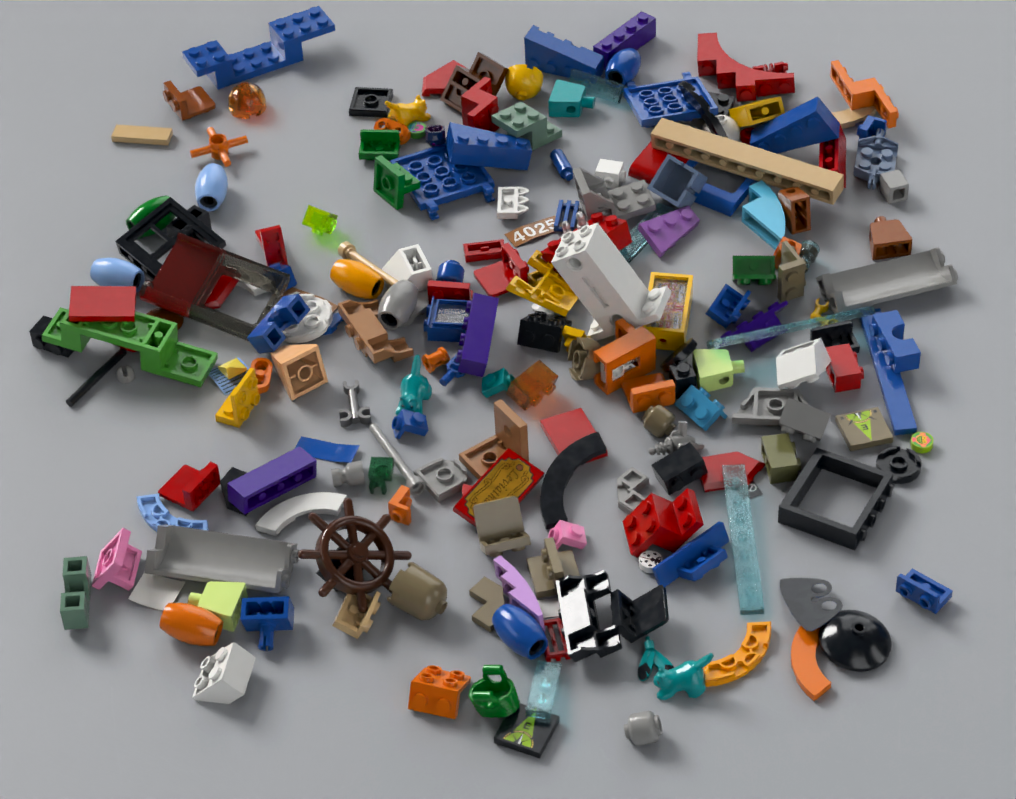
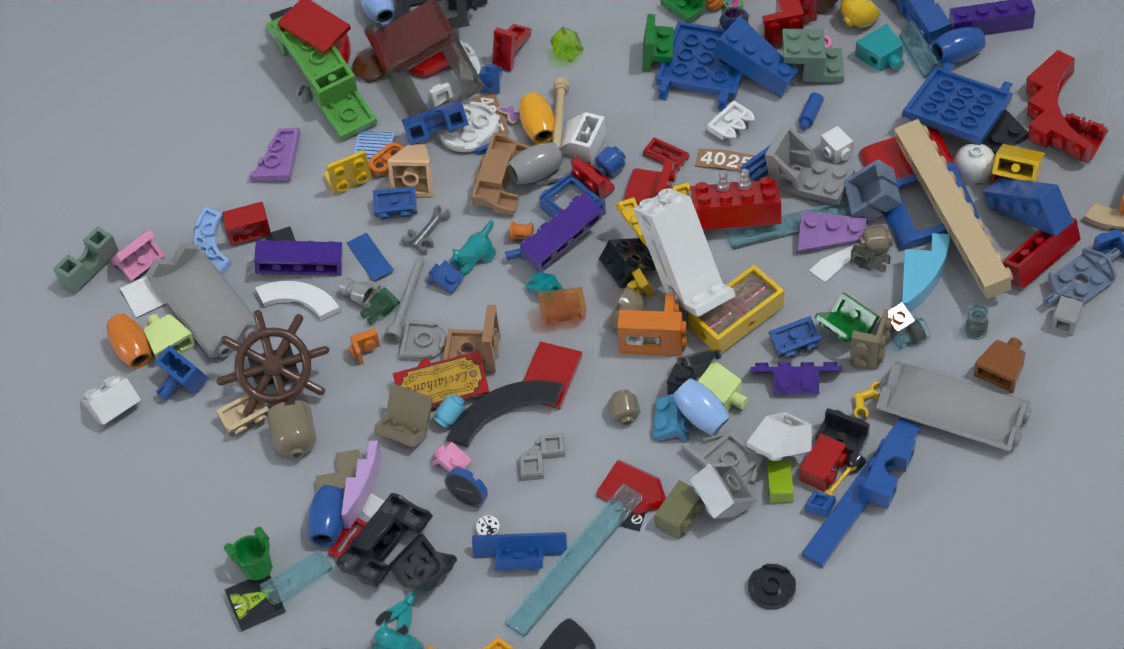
camera: 45 degrees right, 10 degrees up
(103, 370) = (275, 85): black bar -> none
(160, 427) = (280, 158): none -> medium lavender wing
(232, 368) = (376, 139): light yellow slope -> none
(253, 307) = (440, 93): none -> white tile
(305, 399) = (394, 202): none -> blue bracket
(330, 292) = (510, 110): none -> medium lavender sticker
(437, 691) = (229, 517): orange bracket -> none
(530, 503) = (449, 410): none -> medium azure brick
(550, 567) = (412, 480): dark tan bracket -> none
(609, 540) = (465, 487): none -> tile
(648, 391) = (645, 373): orange bracket -> none
(662, 522) = (522, 501): red bracket -> none
(675, 441) = (616, 437): light grey piece -> none
(679, 468) = (589, 462): black brick -> none
(693, 249) = (831, 264): none -> white sticker
(702, 107) = (963, 118): black tile -> none
(712, 214) = (876, 239): none -> dark tan head
(716, 230) = (866, 259): none -> clear smoke plate
(723, 380) = (701, 406): none -> light blue piece
(790, 327) = (814, 395): clear light blue tile -> none
(795, 203) = (950, 271): dark orange torso -> none
(824, 528) = (670, 548): black window -> none
(826, 399) = (780, 481): none -> lime slope
(839, 223) = (977, 322): none -> clear light blue piece
(864, 354) = (854, 463): none -> hinge
(864, 429) = (781, 532): dark tan tile -> none
(870, 394) = (820, 504): none -> blue tile
(921, 442) = (814, 580): tile -> none

